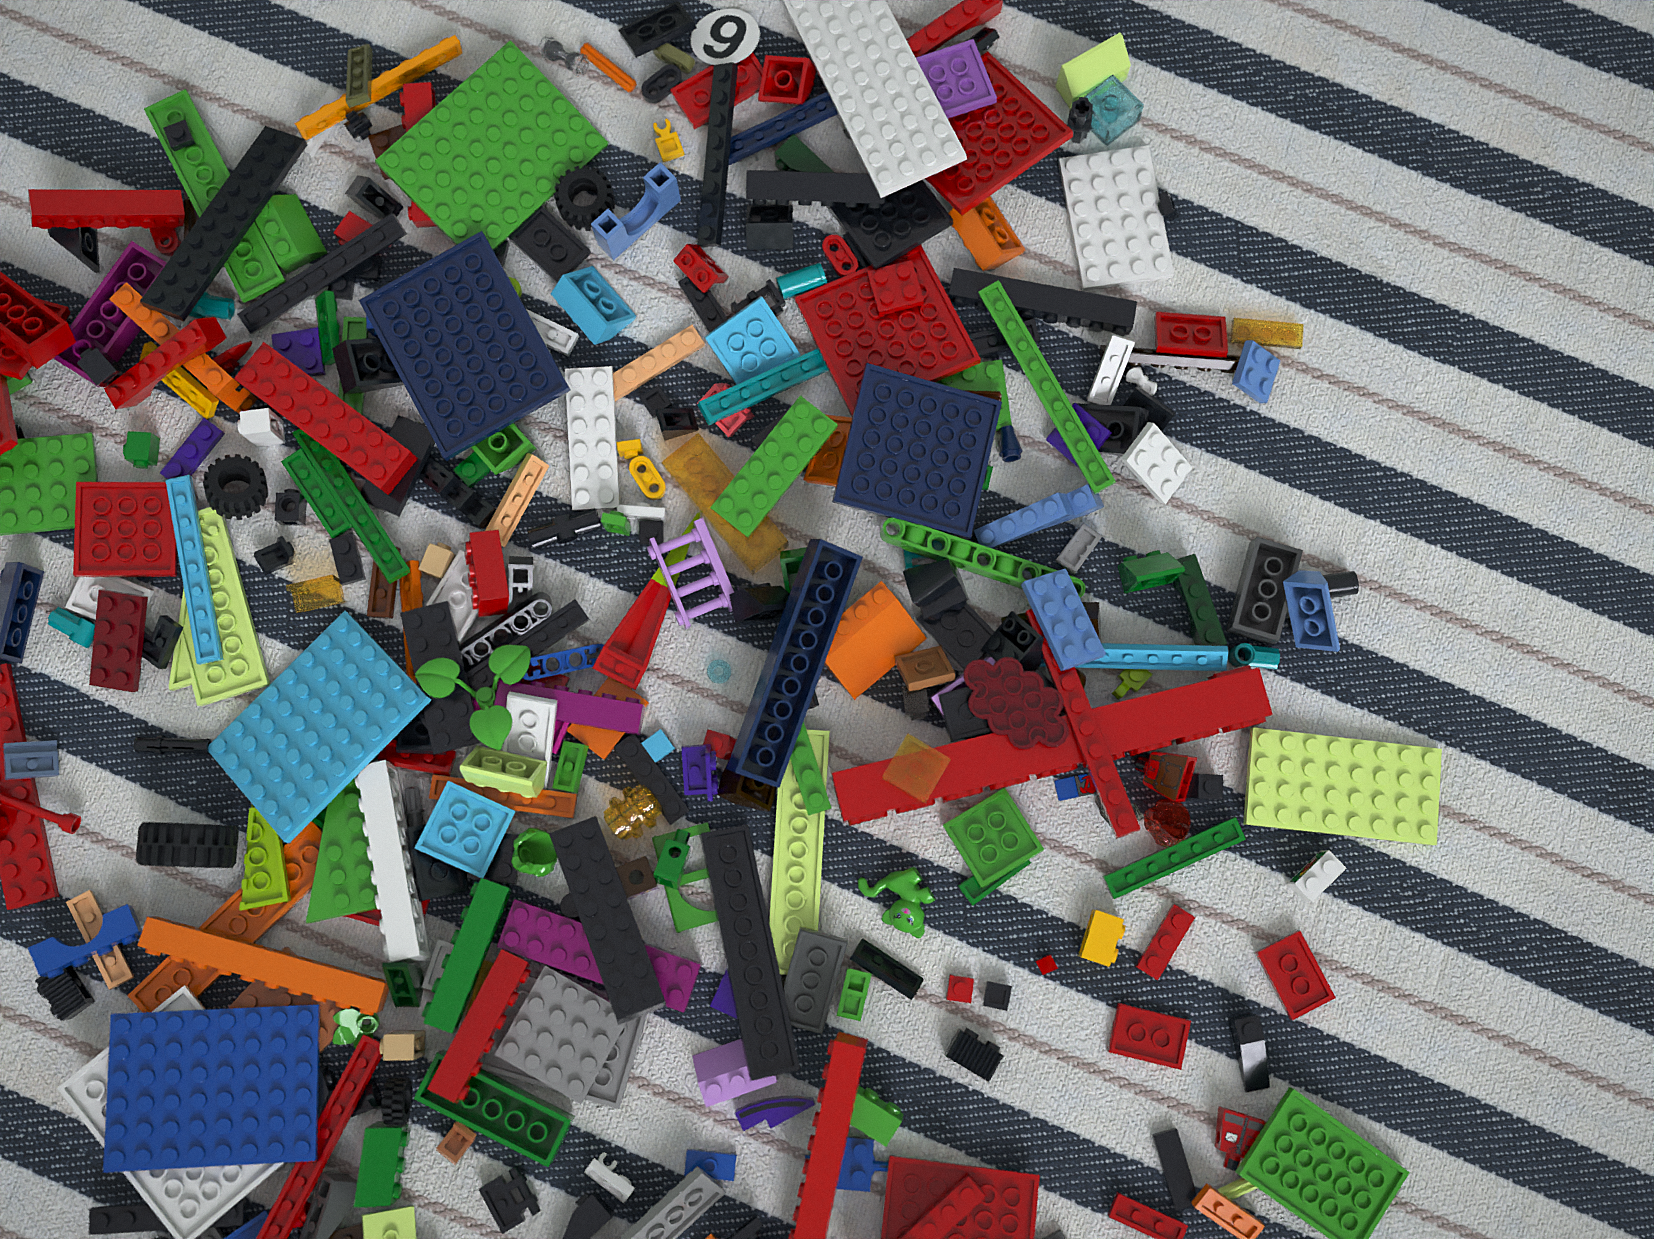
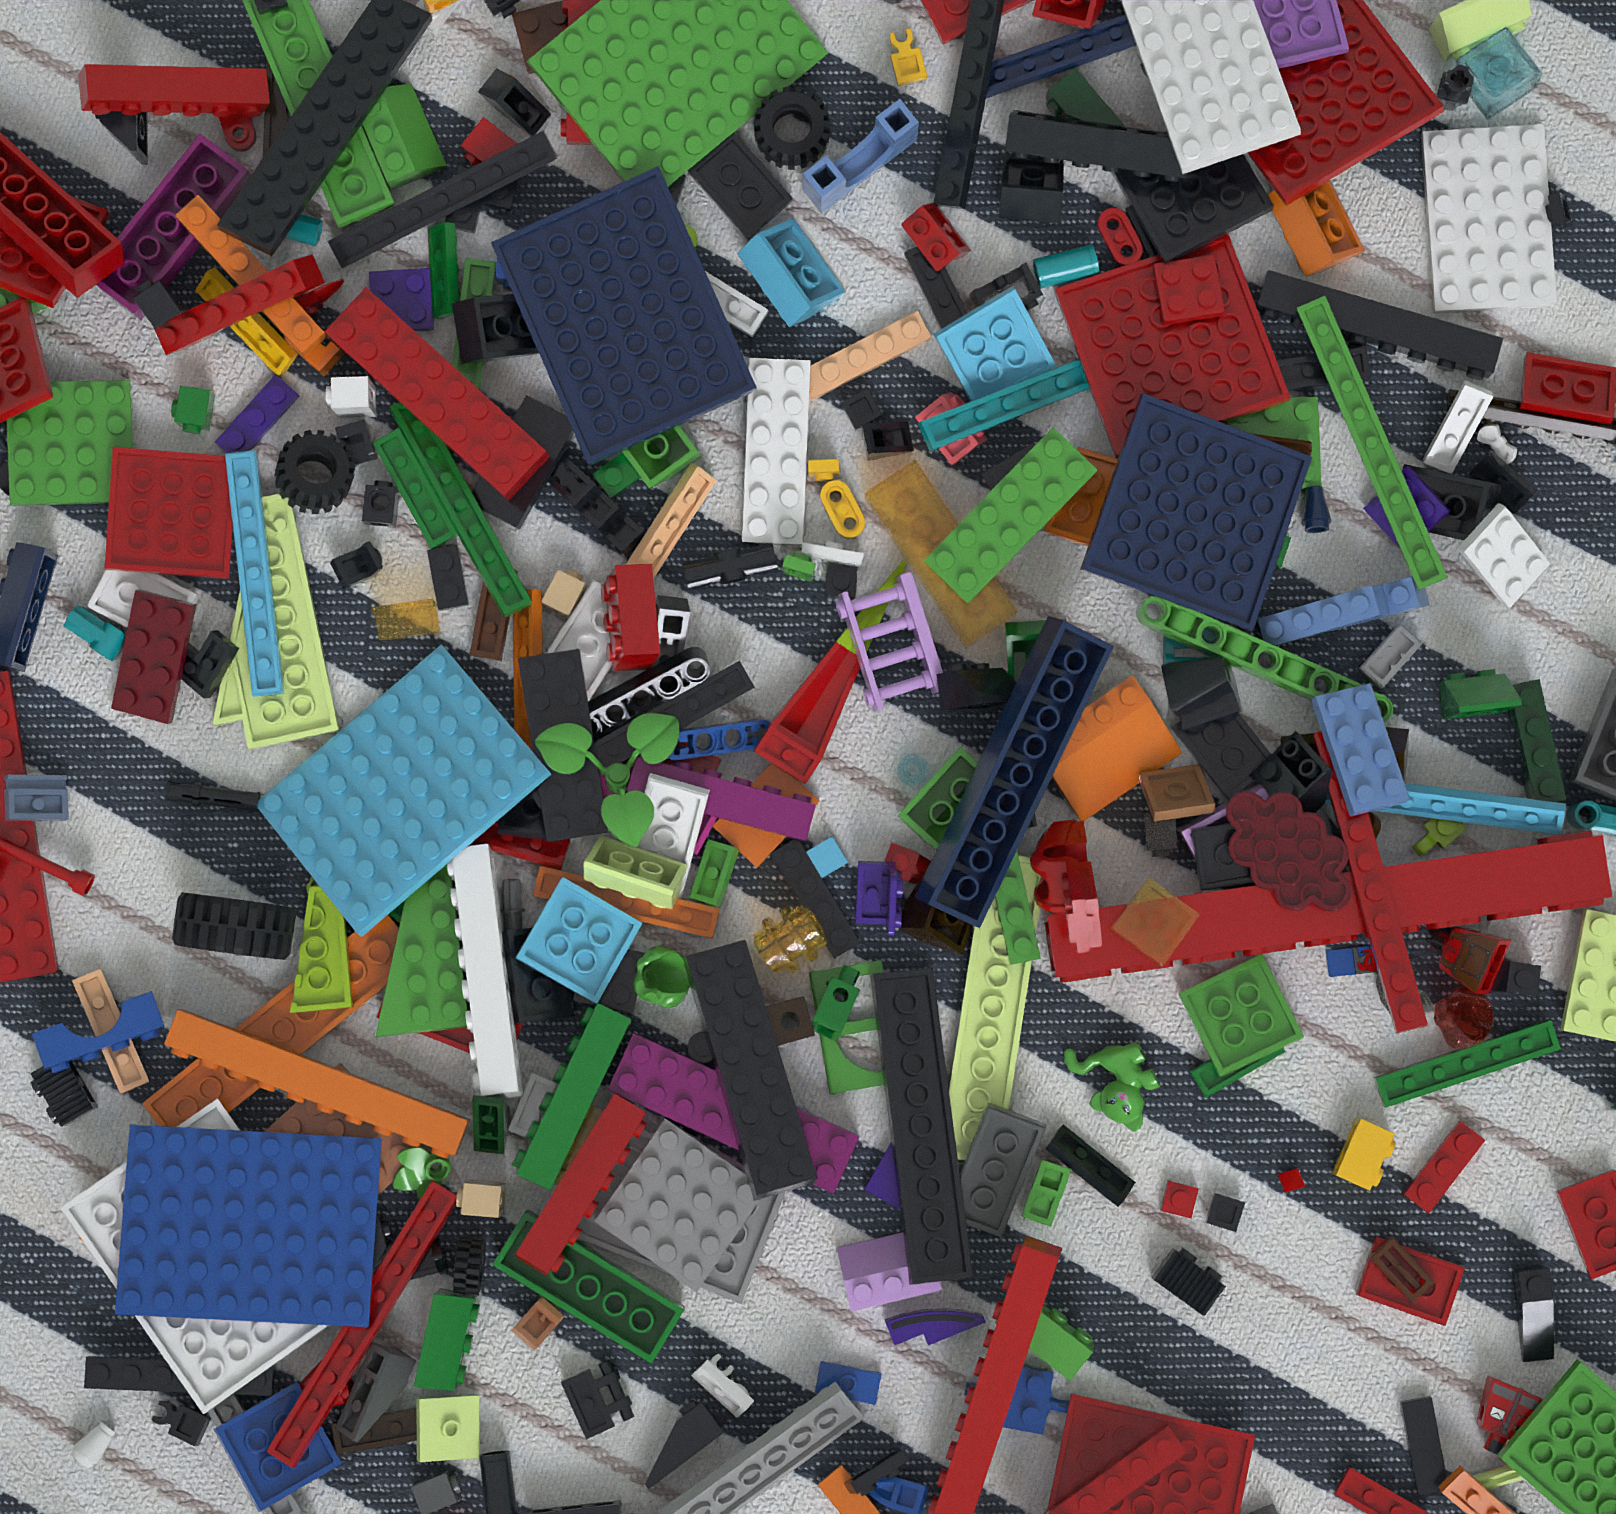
camera: 10 degrees right, 5 degrees up
(270, 460) = (358, 440): none -> black panel
(737, 693) = (937, 801): none -> bright green slope
(844, 744) = (1068, 881): none -> red piece
(1125, 1013) = (1383, 1250): none -> reddish brown tile

